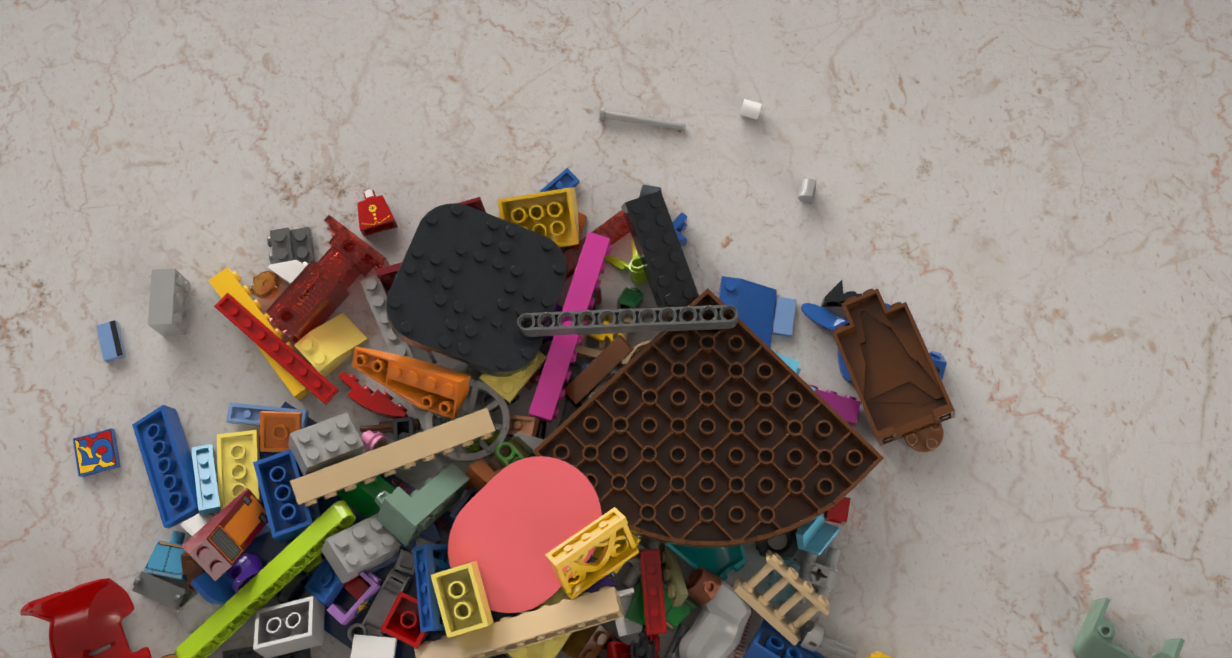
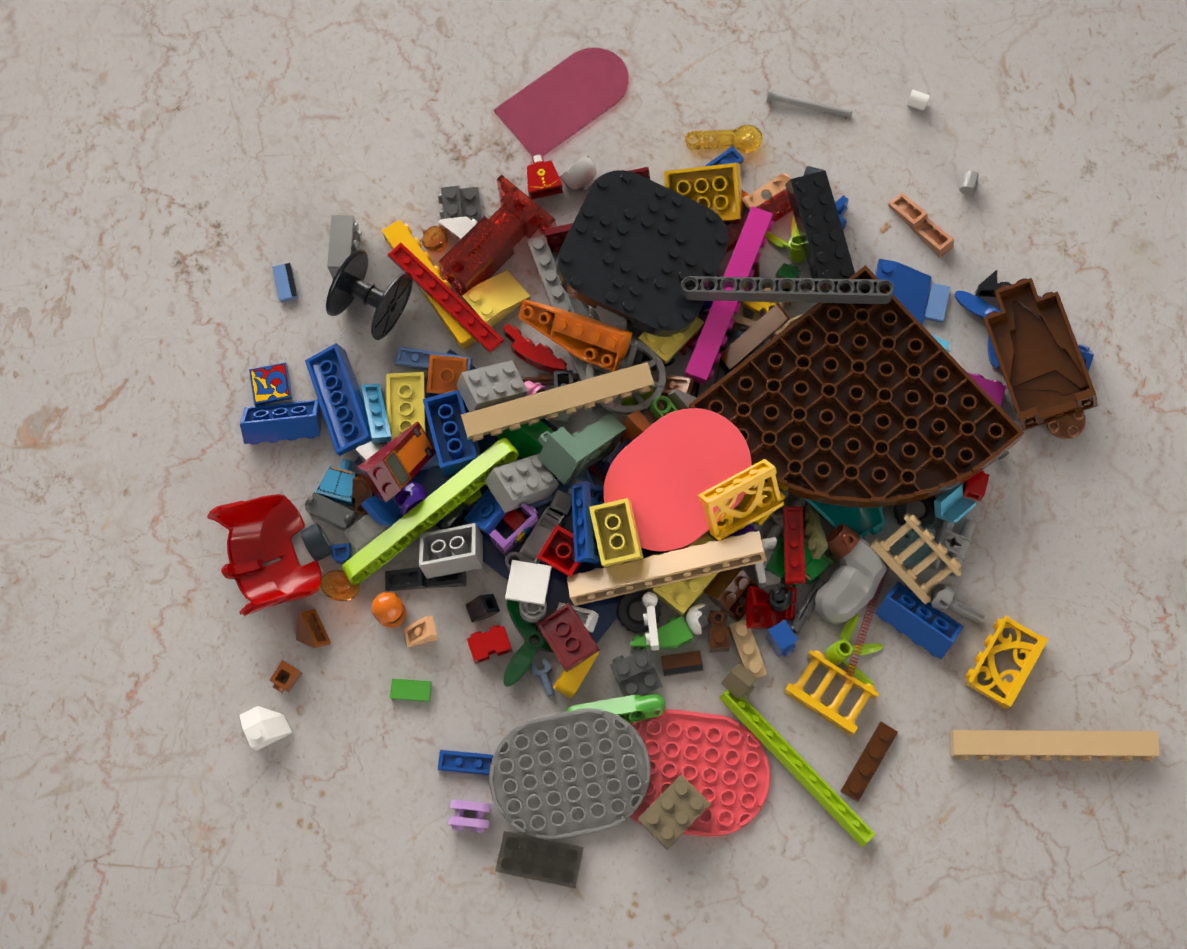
camera: 10 degrees right, 0 degrees up
(106, 494) = (281, 422): none -> blue slope
(146, 626) = (316, 542): none -> black wheel
(173, 341) = (350, 284): none -> black piece
(175, 634) = (341, 552): none -> blue tile
(396, 130) = (565, 99): none -> clear pink piece
(413, 207) = (580, 174): none -> white cylinder
(561, 160) = (727, 138): none -> clear yellow beam
(612, 207) = (773, 187): none -> light nougat piece
(765, 239) = (919, 222): none -> nougat slope

